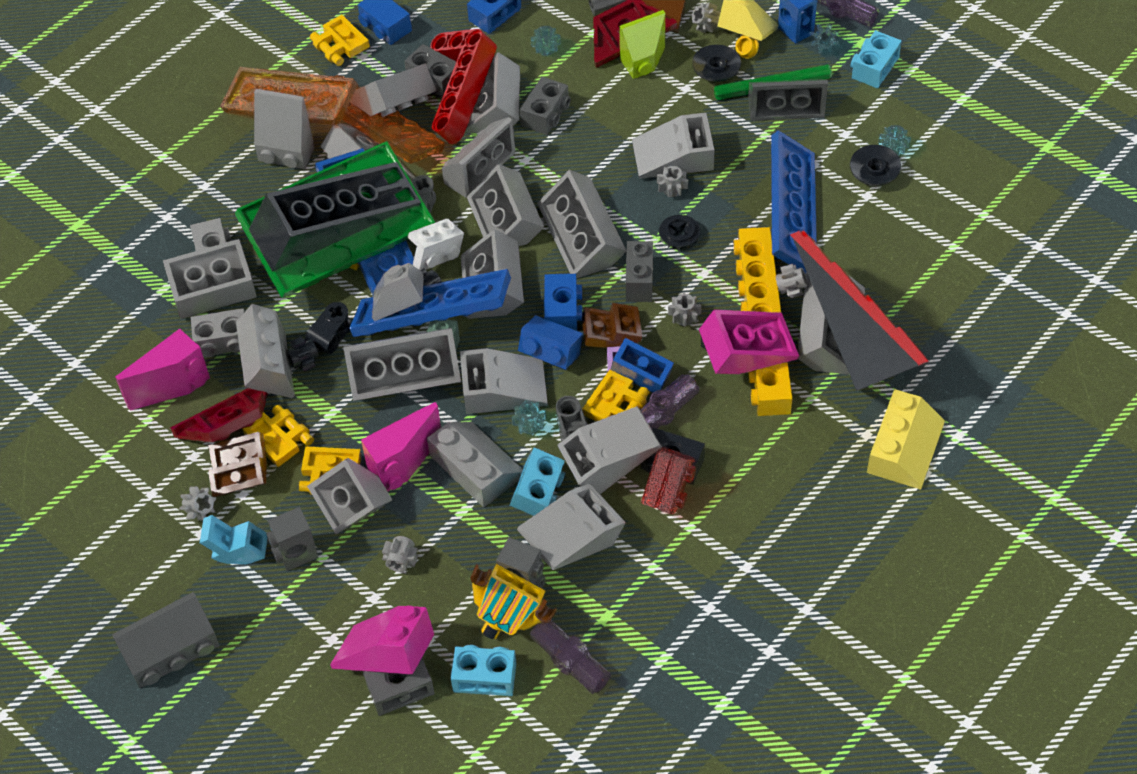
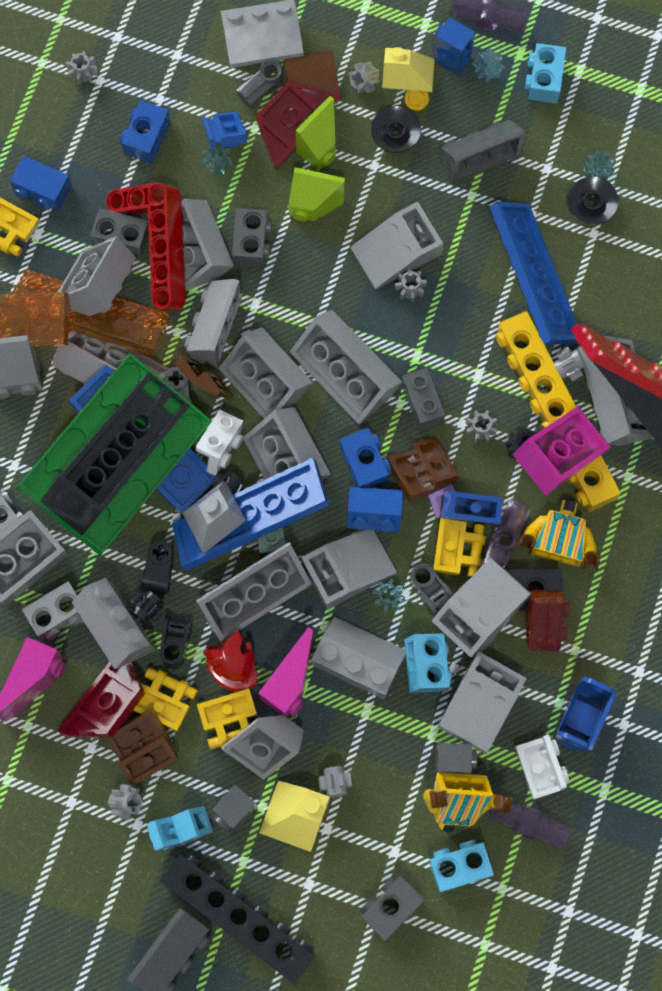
camera: 25 degrees left, 20 degrees up
(277, 699) = (176, 880): none -> black brick
(313, 392) = (175, 636): none -> black piece
(350, 573) = (294, 815): none -> light yellow slope
(354, 419) = (230, 665): none -> red helmet
(387, 642) = (366, 881): dark pink slope -> none
(446, 191) = (205, 380): none -> reddish brown slope
(564, 21) = (224, 130): none -> blue plate
(605, 611) = (542, 767): none -> white bracket
(617, 86) = (314, 194): none -> lime slope
(668, 575) = (585, 715): none -> blue piece
(676, 224) = (432, 329): black gear -> none
(716, 421) = (561, 537): none -> torso
(742, 87) = (457, 131): green axle -> none

